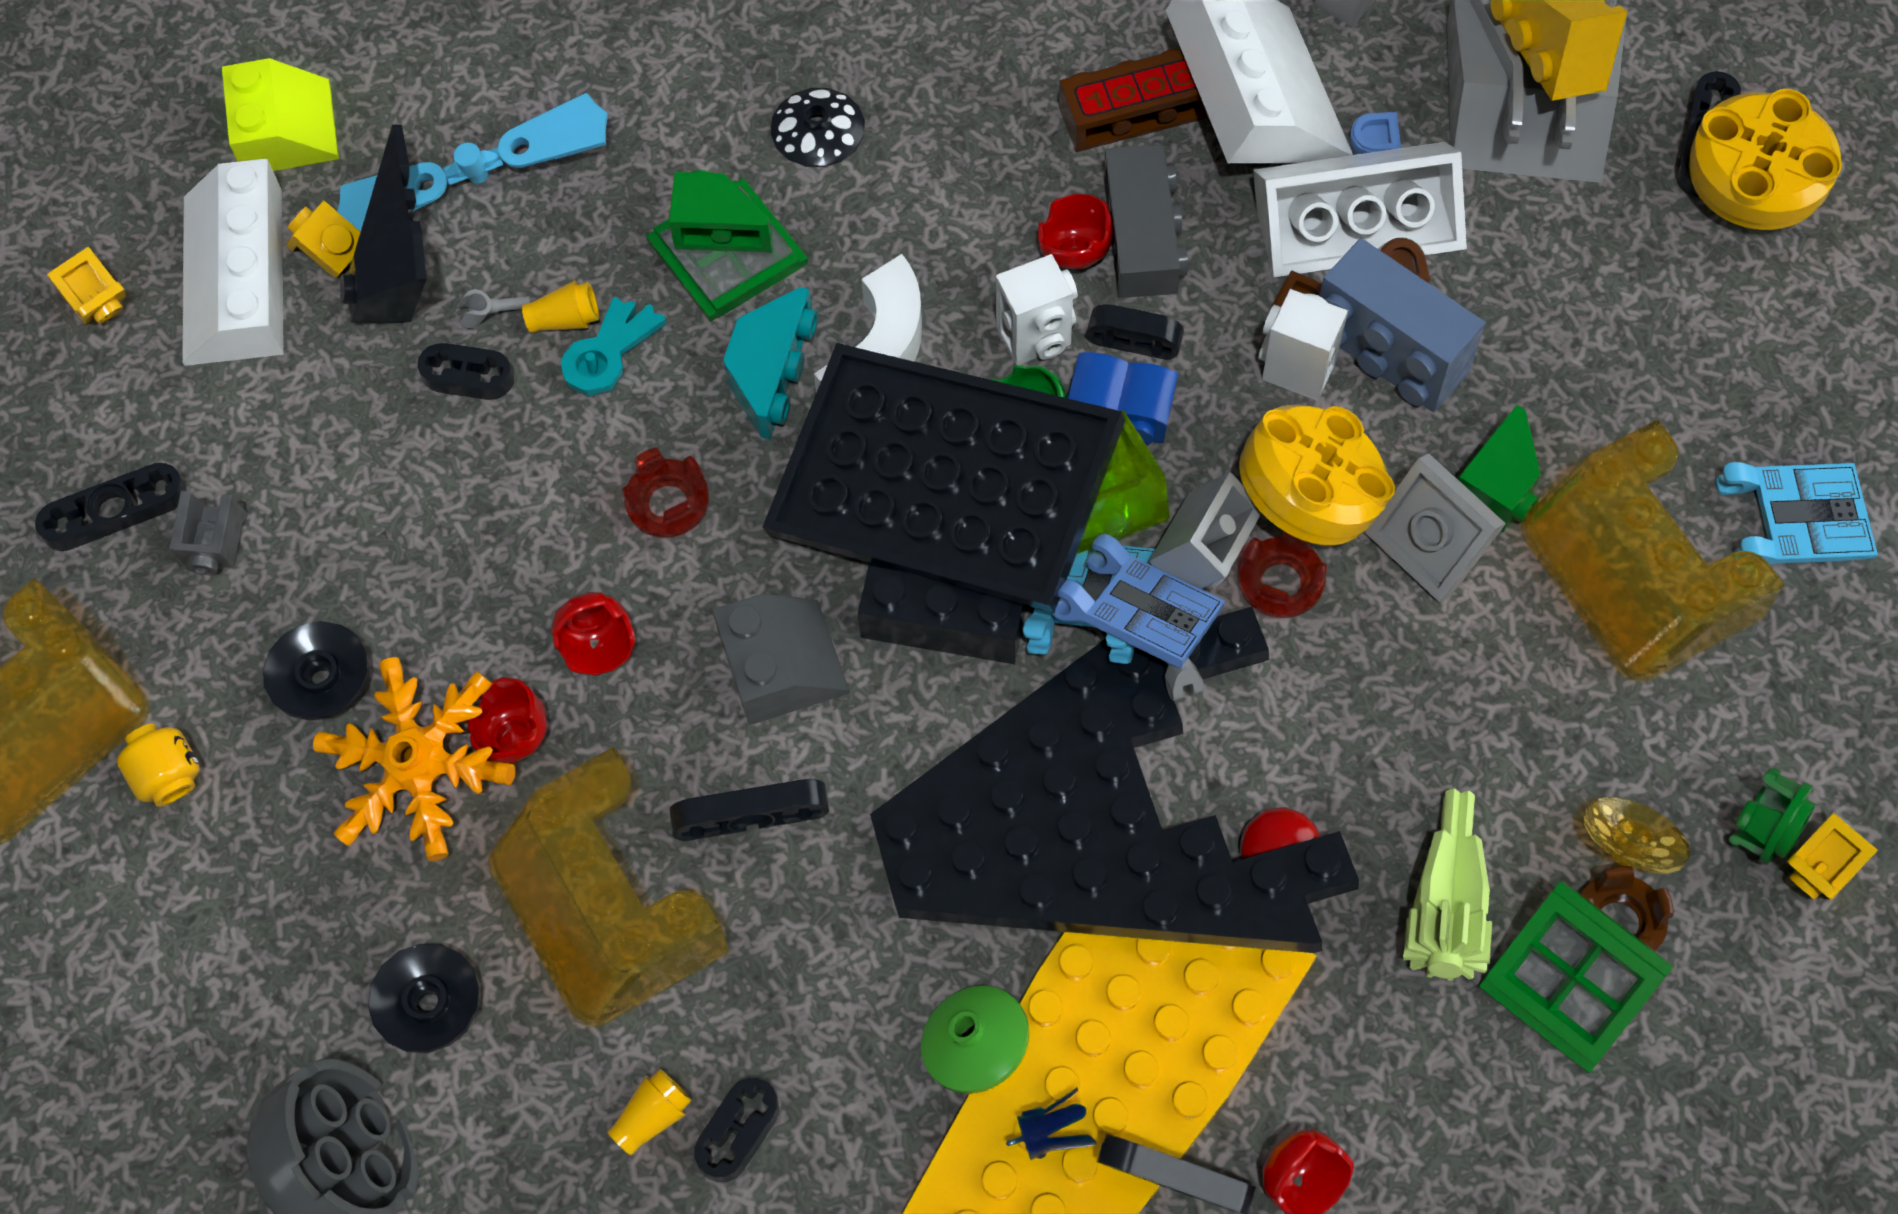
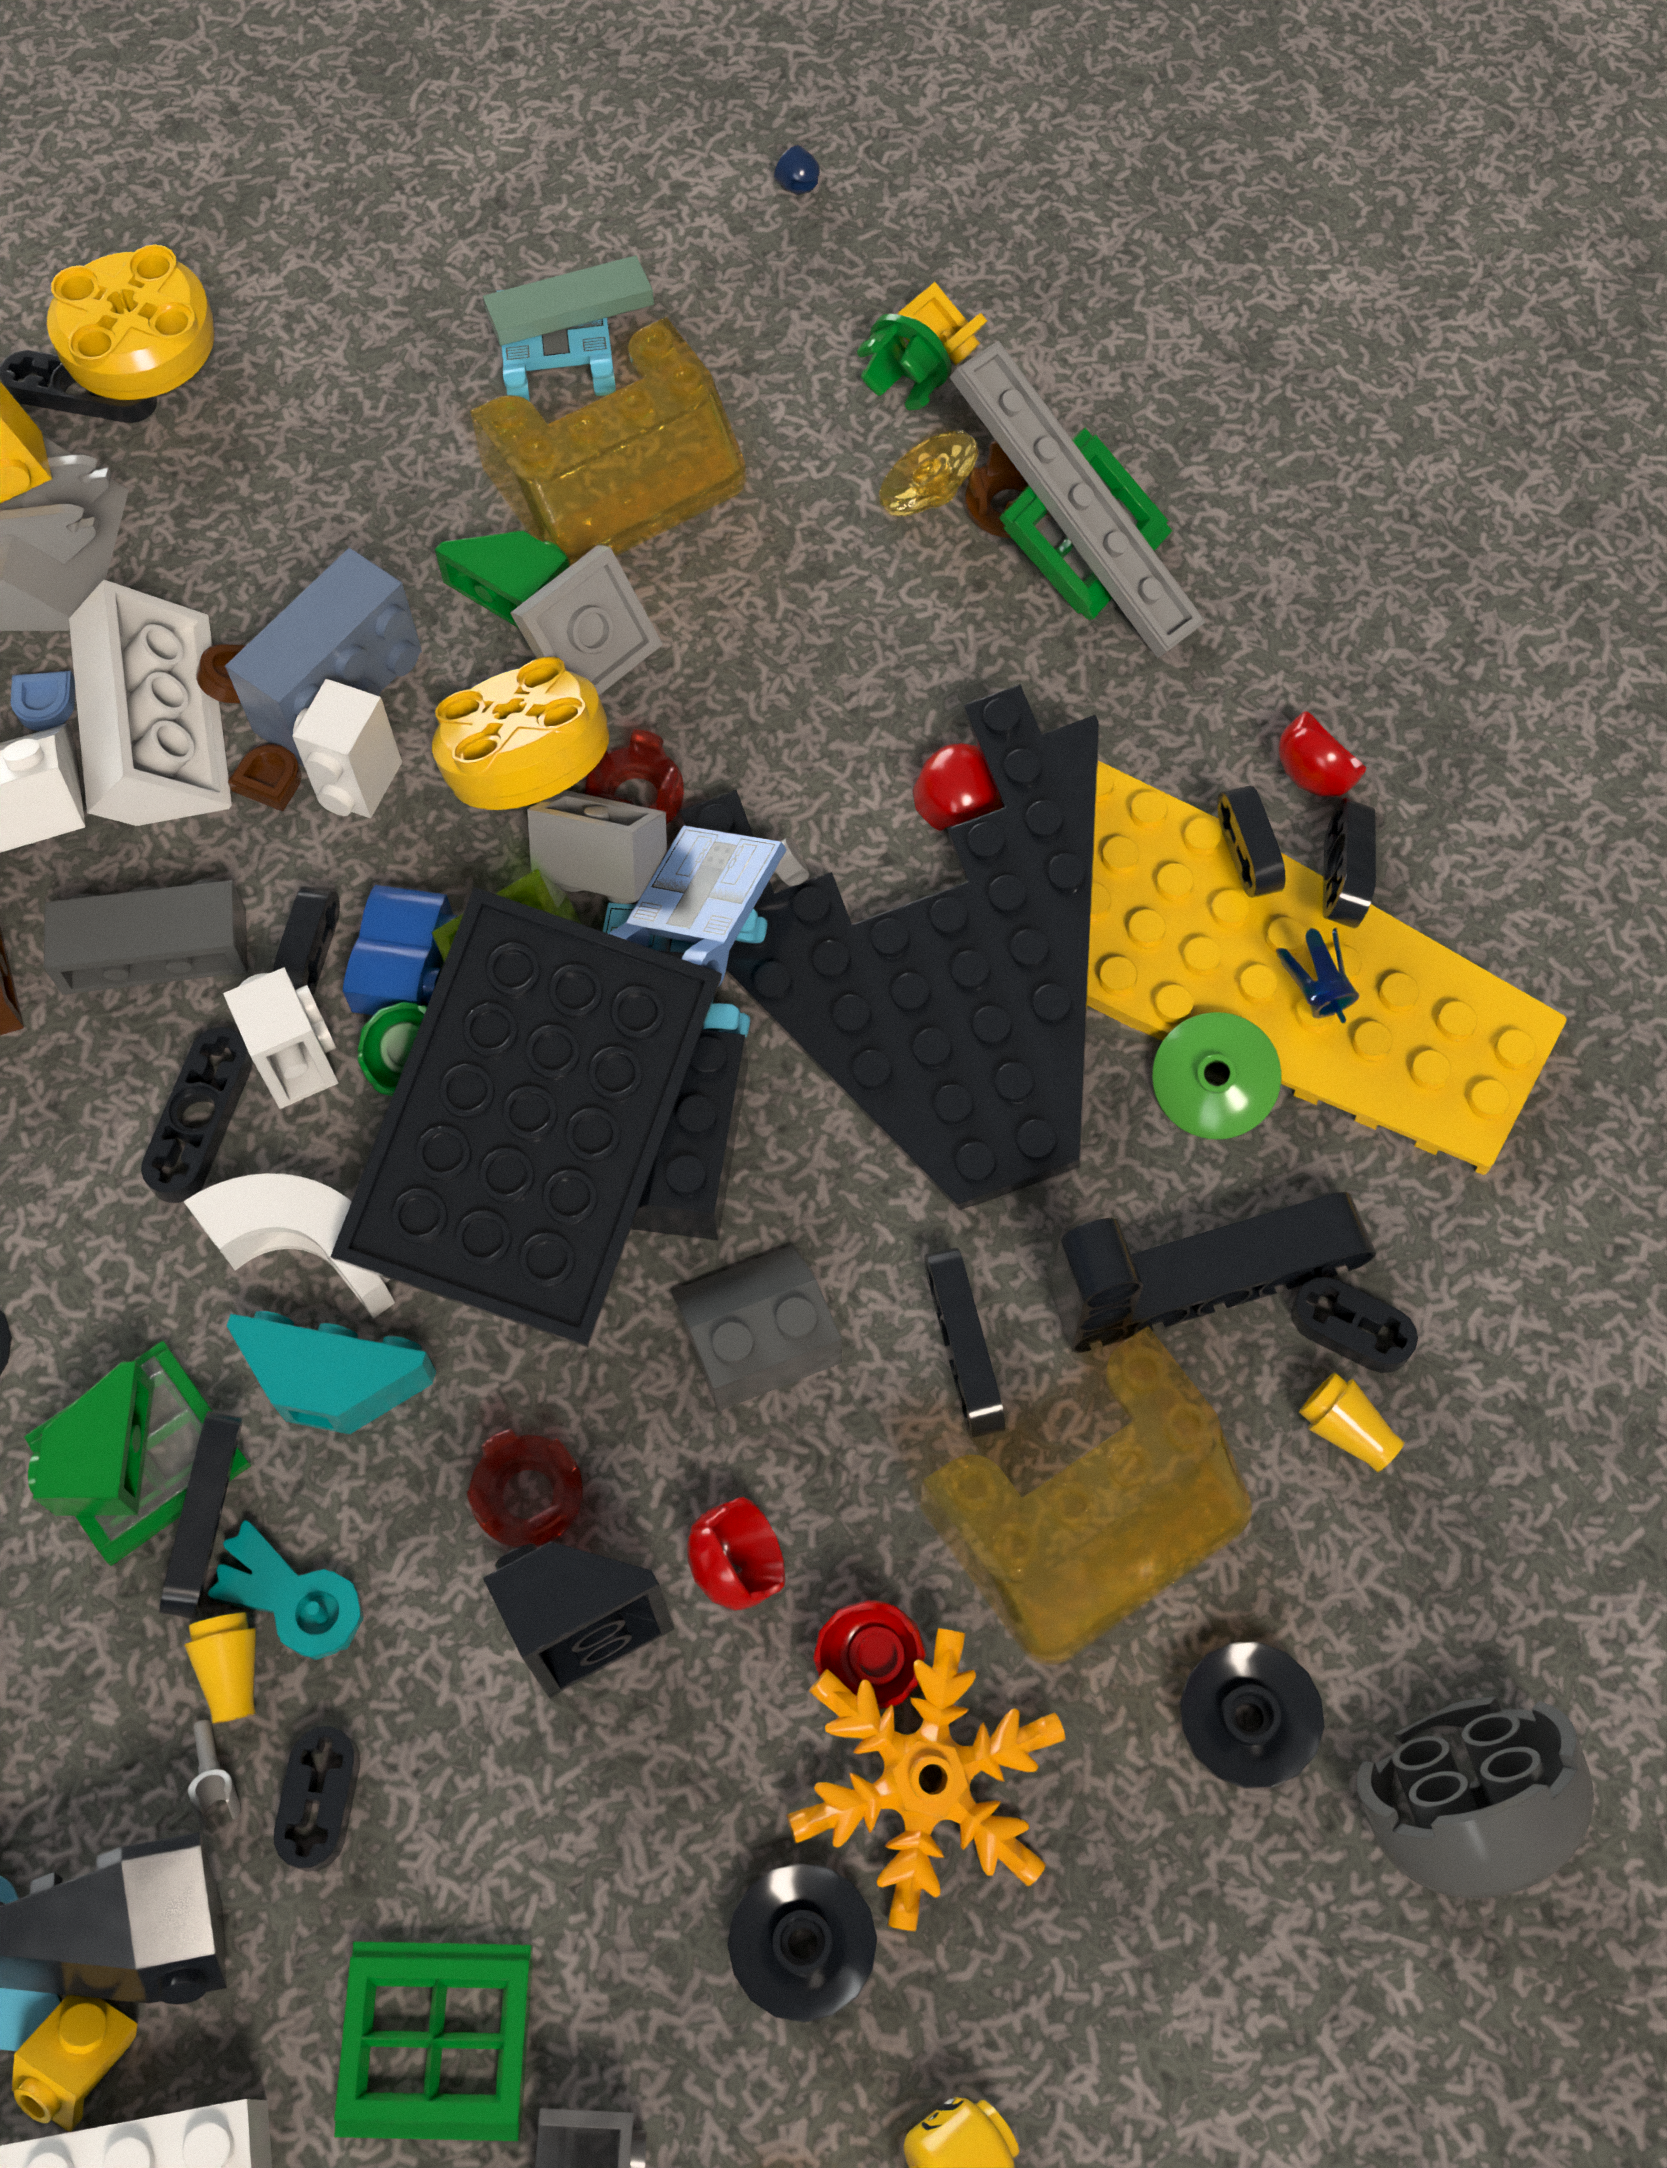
camera: 95 degrees left, 0 degrees up
(343, 452) = (430, 2113): none -> green piece
(547, 500) = (575, 1610): none -> black slope
(666, 283) = (200, 1515): none -> black beam
(786, 997) = (1115, 1294): none -> black beam
(979, 252) = (187, 1090): none -> black beam
(1079, 223) = (150, 996): red hair -> none
(1197, 1081) = (1251, 841): none -> black beam
(1450, 908) = (1008, 628): yellowish green piece -> none
(1583, 953) = (1077, 498): none -> light grey tile
(1838, 521) = (568, 300): none -> sand green tile

